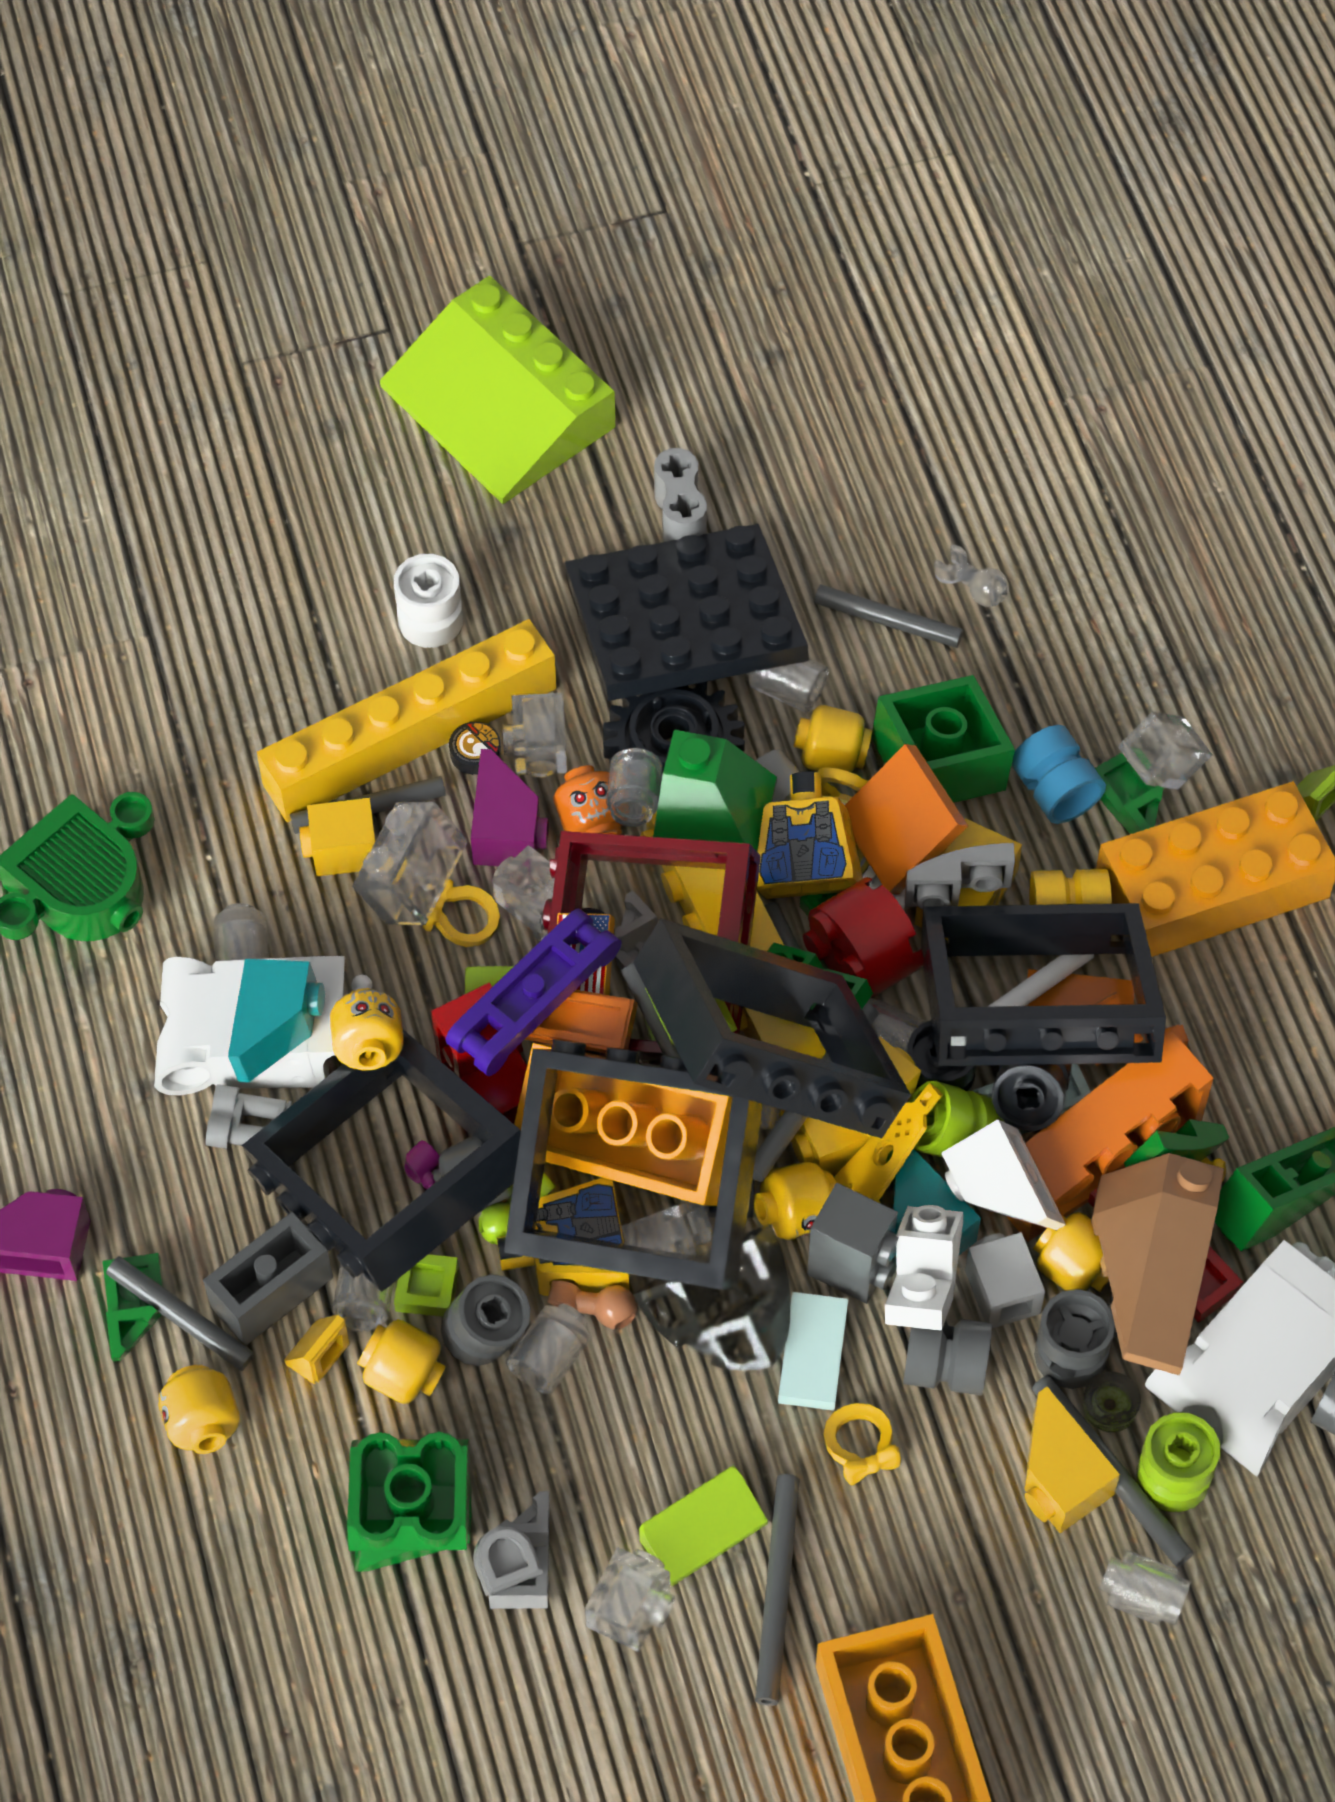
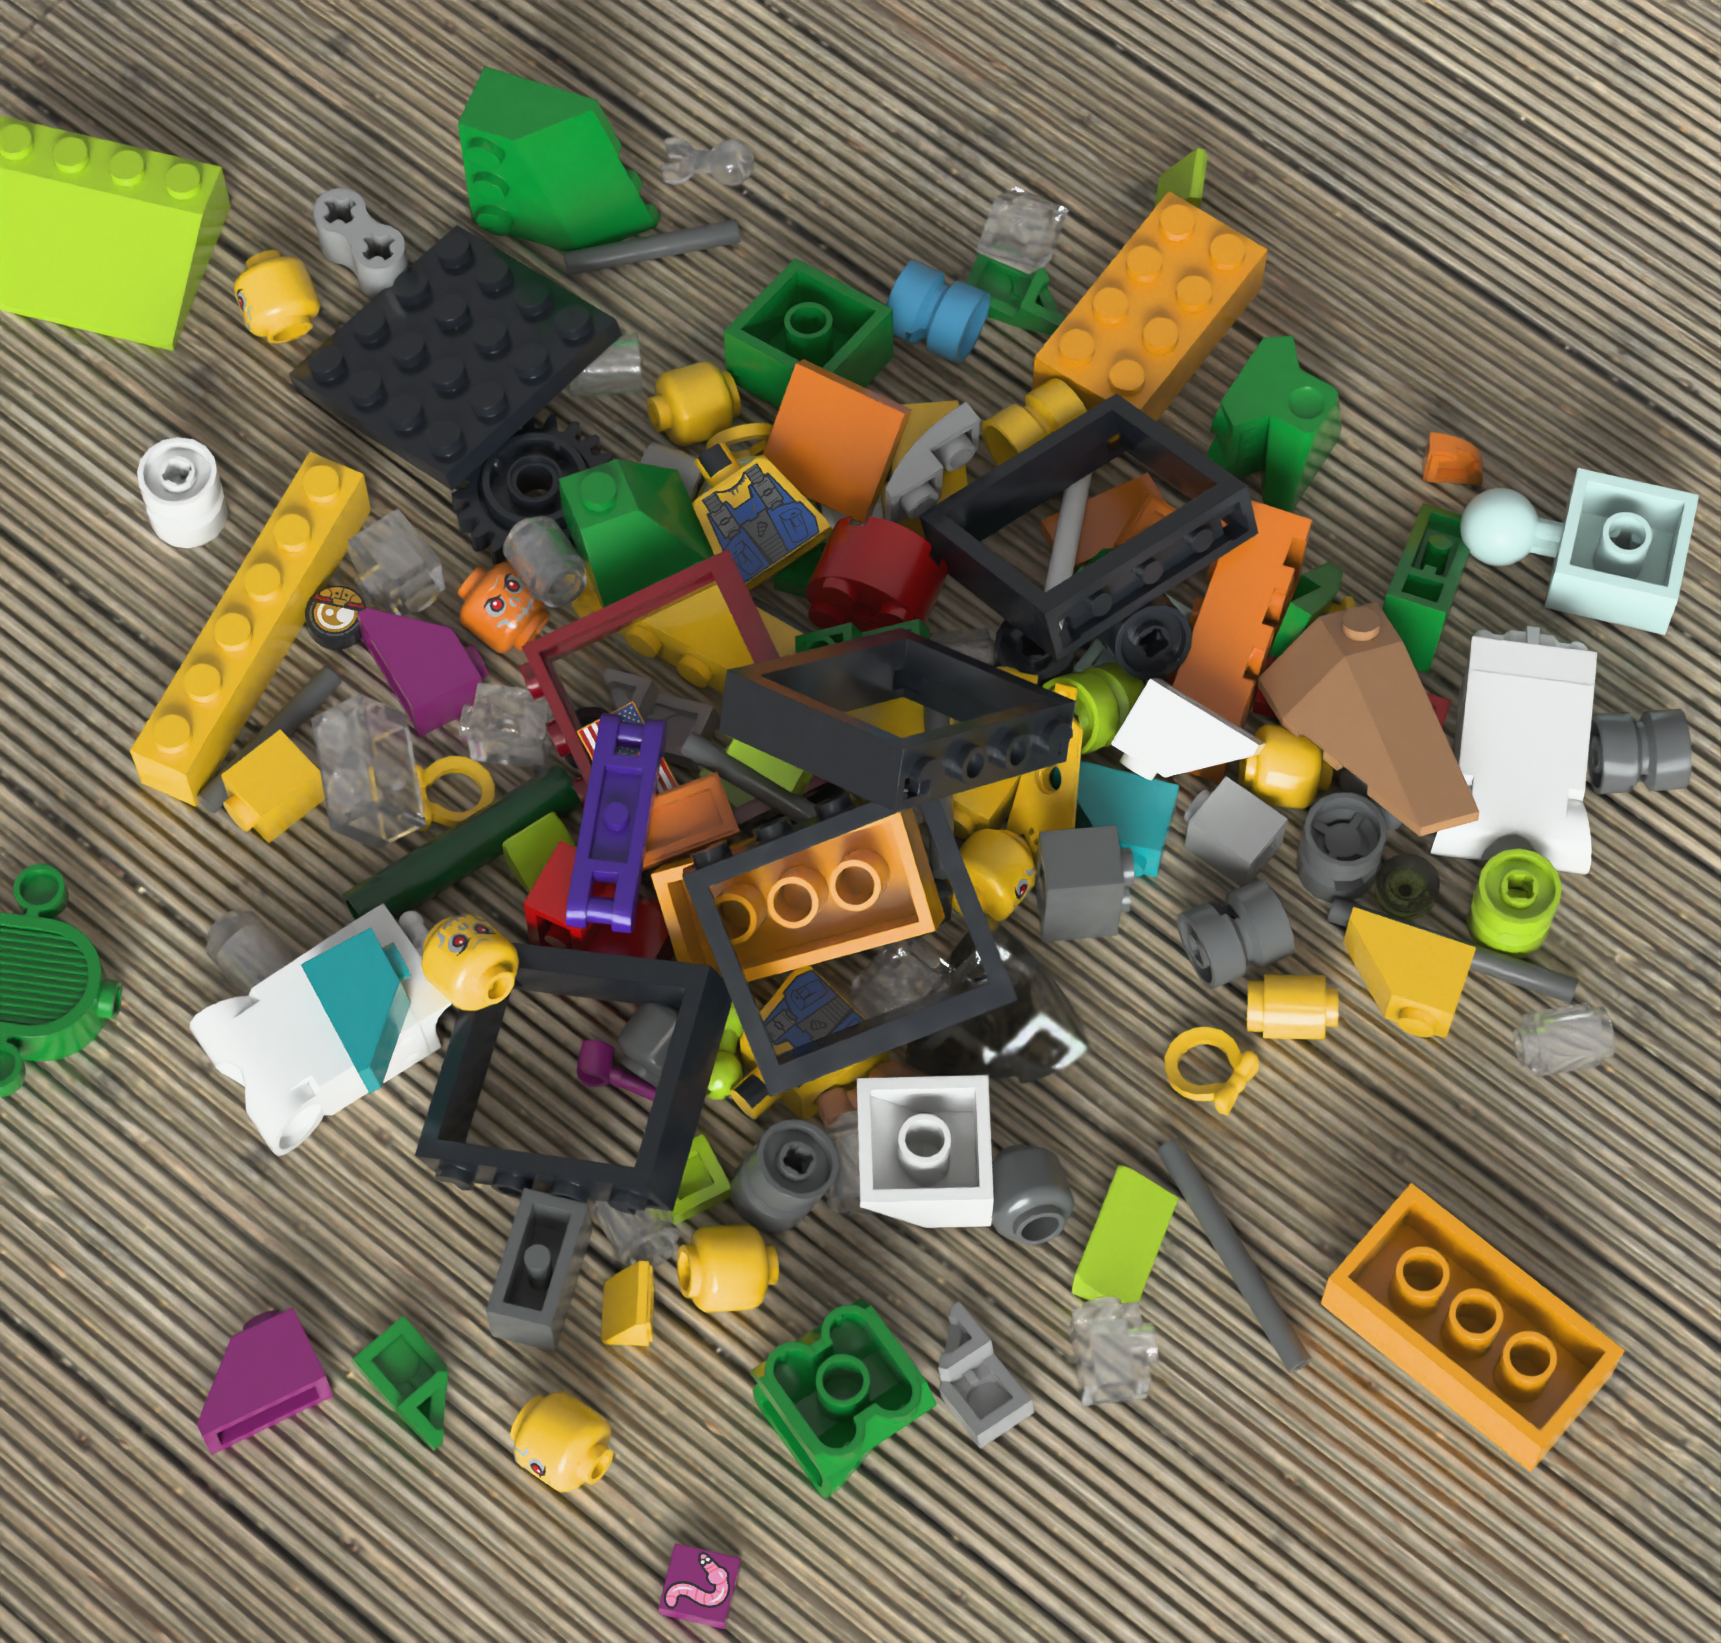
camera: 35 degrees left, 5 degrees up
(180, 1313) = (469, 1360): dark grey bar -> none
(220, 1574) = (699, 1586): none -> magenta tile
(227, 1114) = (364, 1132): light grey piece -> none
(428, 956) = (463, 846): none -> dark green piece
(505, 1559) = (971, 1392): light grey tile -> none
(594, 503) = (276, 297): none -> yellow head
(599, 1365) = (926, 1149): none -> white slope
(653, 1445) = (1030, 1194): none -> dark grey head
(813, 1351) = (1107, 1009): light aqua tile -> none
(838, 512) = (547, 166): none -> green wedge
(925, 1267) = (1168, 864): white slope -> none
(952, 1433) = (1291, 1006): none -> yellow brick
(1252, 999) = (1276, 423): none -> green piece

